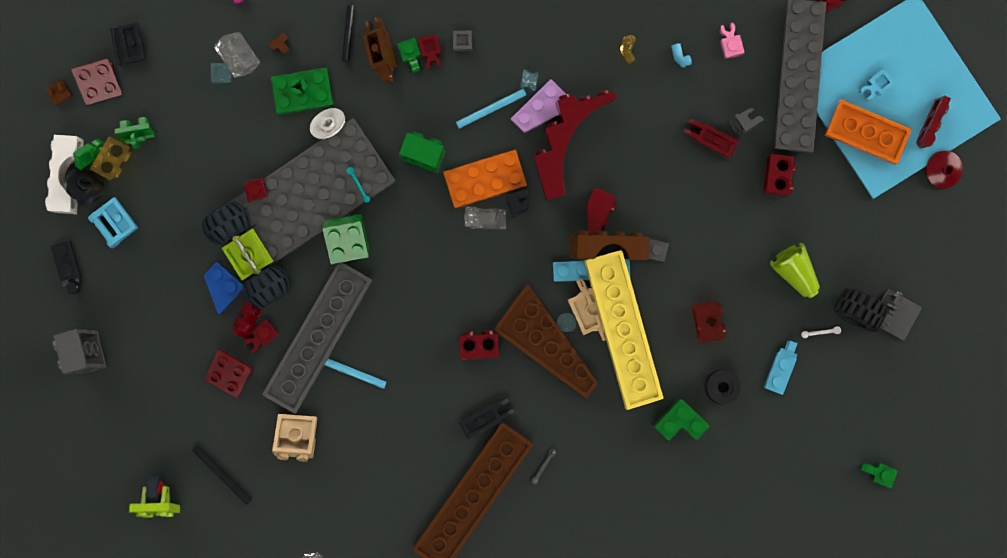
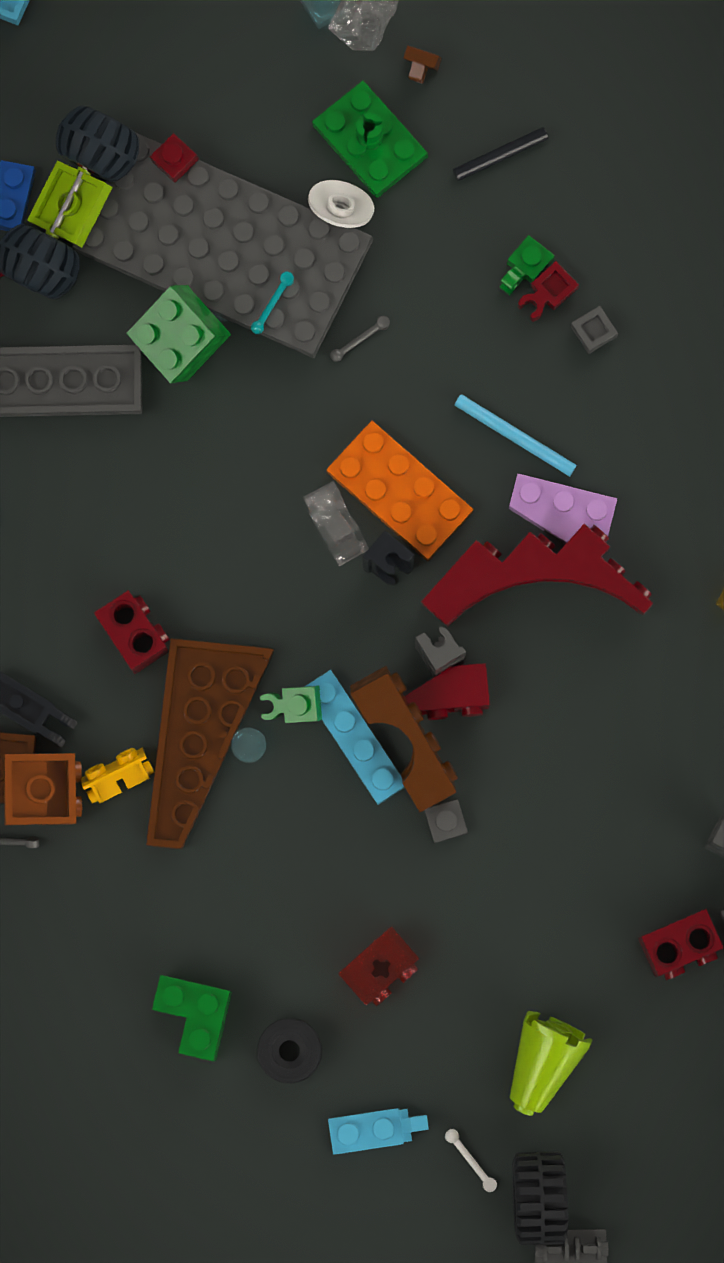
camera: 60 degrees right, 5 degrees down
(379, 50) = (501, 213): reddish brown hinge -> none
(397, 138) = (381, 324): none -> dark grey hinge
(422, 152) = (379, 369): green brick -> none
(529, 80) = (594, 466): clear light blue wheel -> none
(531, 433) = (41, 789): none -> dark orange plate
(543, 384) = (126, 767): none -> yellow hinge
(560, 287) = (297, 704): none -> plate
(578, 206) = (441, 654): none -> dark grey hinge
(586, 311) = (292, 773): tan plate -> none
(623, 329) = (287, 839): light yellow plate -> none
(712, 138) = (676, 806): dark red hinge -> none

